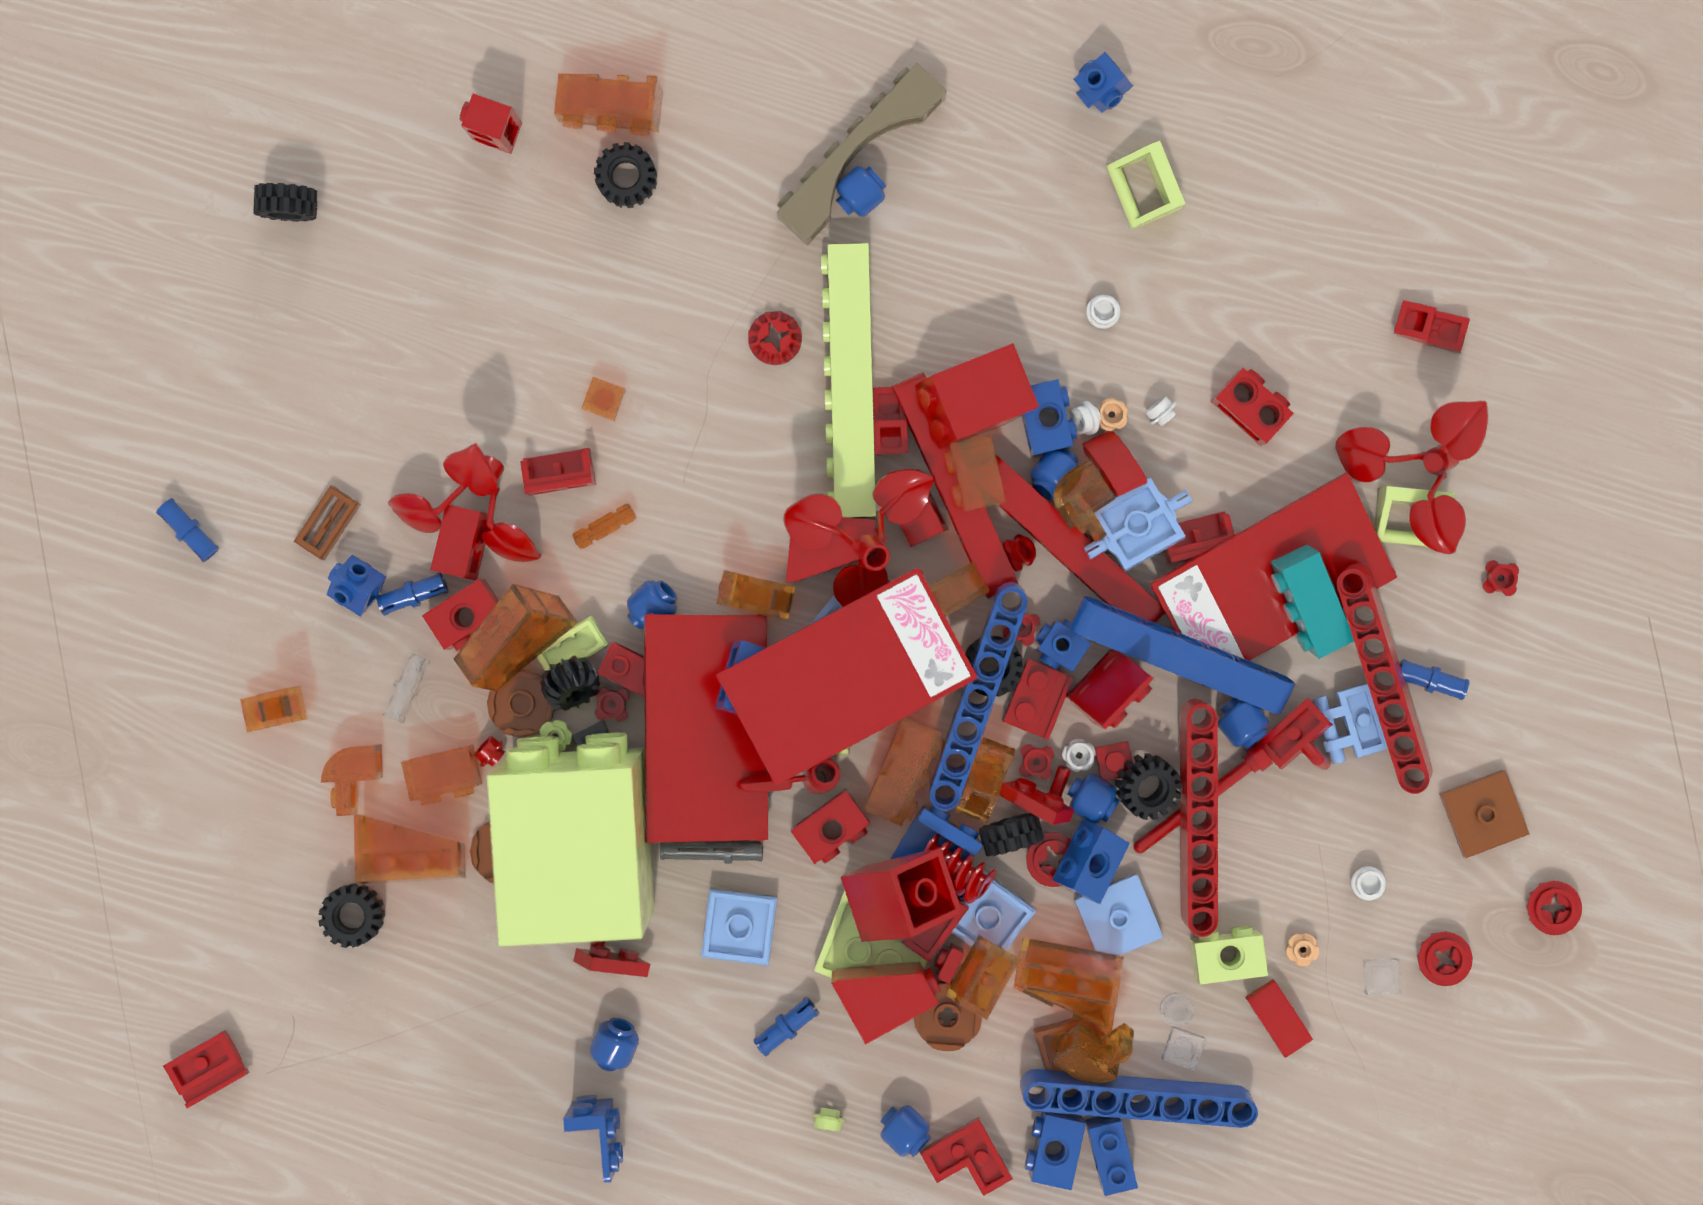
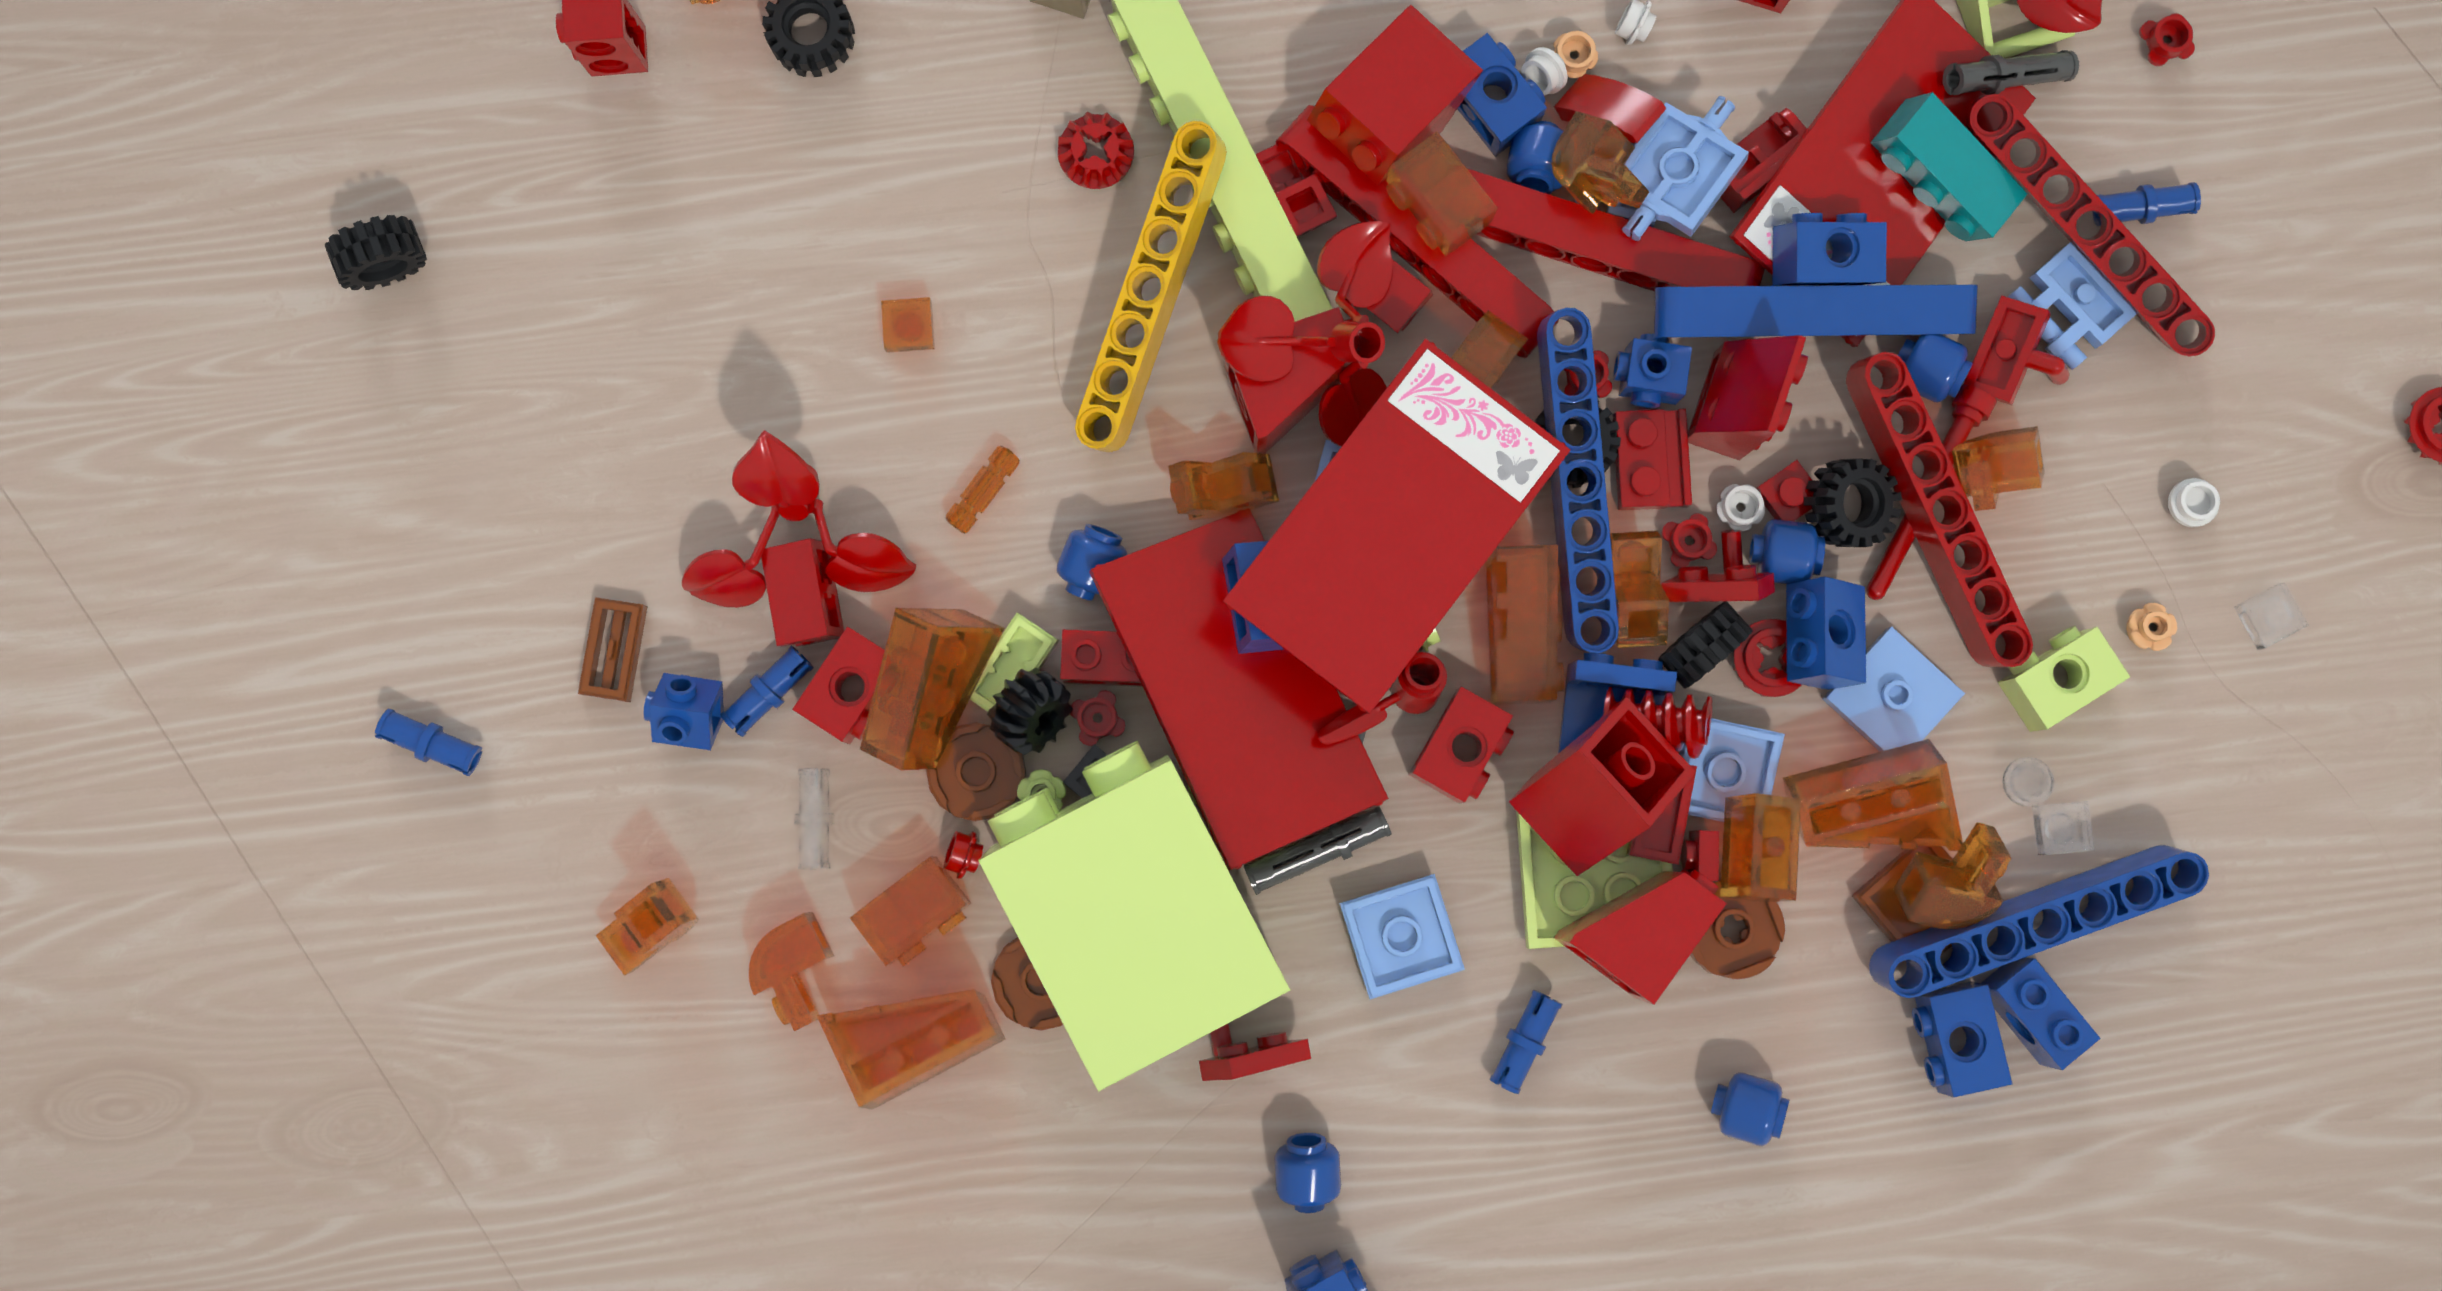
camera: 25 degrees left, 5 degrees down
(331, 915) = (843, 1165): black tyre -> none
(558, 472) = (891, 447): red hinge -> none
(781, 444) = (1148, 264): none -> yellow beam
(828, 1120) = (1641, 1142): yellowish green plate -> none
(970, 1148) = (1845, 1093): red plate -> none
(1020, 552) = (1541, 277): red plate -> none
(1224, 632) = (1856, 251): none -> blue brick
(1253, 804) = (1999, 464): none -> clear orange brick
(1279, 1018) = (2167, 730): red slope -> none
(1372, 553) = (1995, 73): none -> dark grey pin
(1459, 953) = (2355, 540): red gear -> none
(1484, 814) = (2296, 346): dark orange plate -> none

